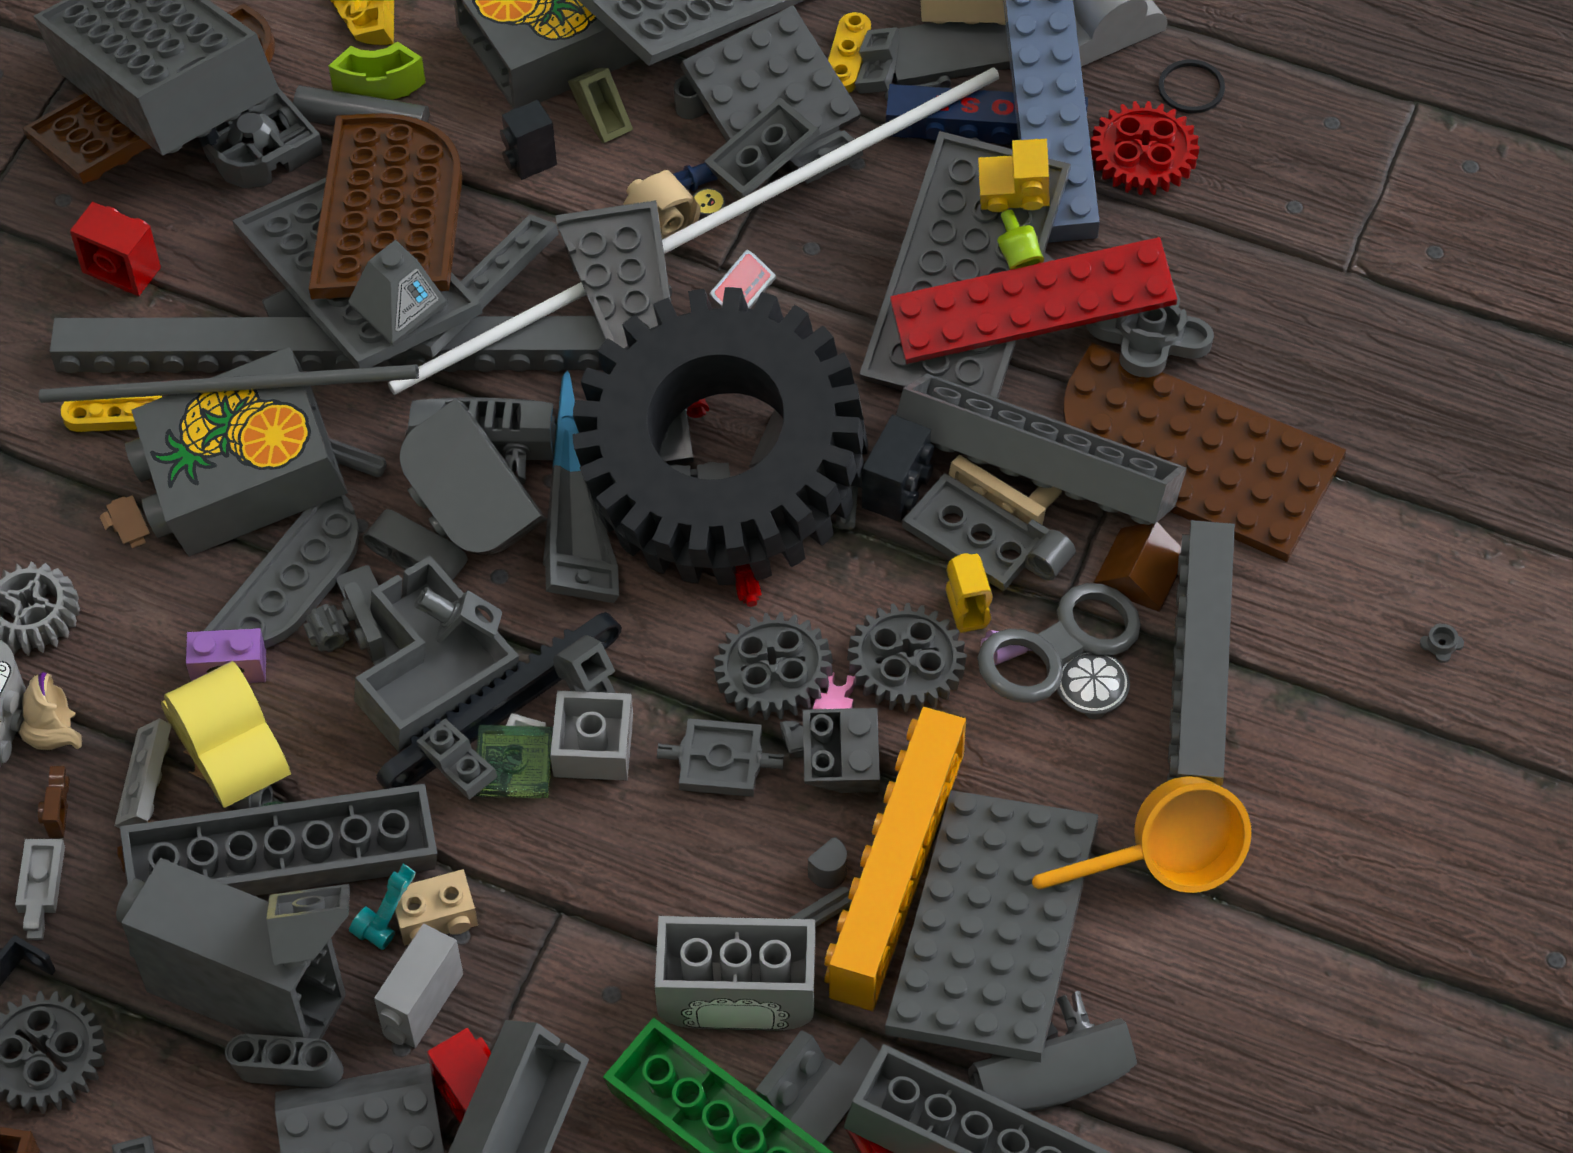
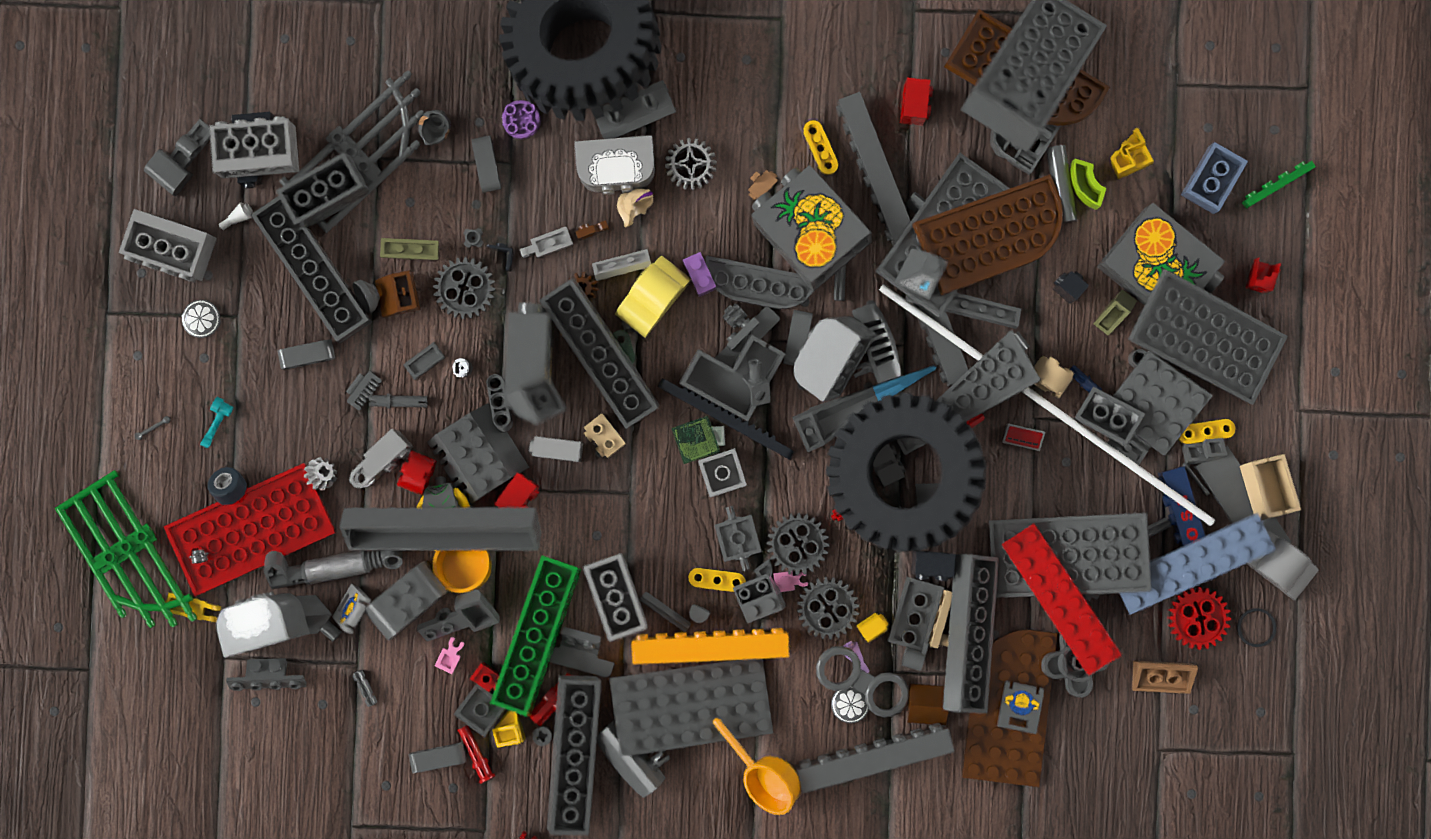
camera: 70 degrees right, 30 degrees up
(186, 1111) = (462, 367): none -> tile
(234, 383) = (837, 211): dark grey piece -> none
(375, 925) = (585, 414): teal brick -> none
(456, 759) = (681, 414): dark grey slope -> none
(585, 666) = (754, 455): dark grey brick -> none
(709, 201) = (1072, 397): light yellow tile -> none
(780, 831) = (708, 576): none -> yellow plate
(1016, 179) = (1124, 567): yellow brick -> none
(1019, 243) = (1090, 580): lime piece -> none
(1188, 419) = (1020, 703): none -> dark grey container
(1221, 221) = (1163, 676): none -> medium nougat slope

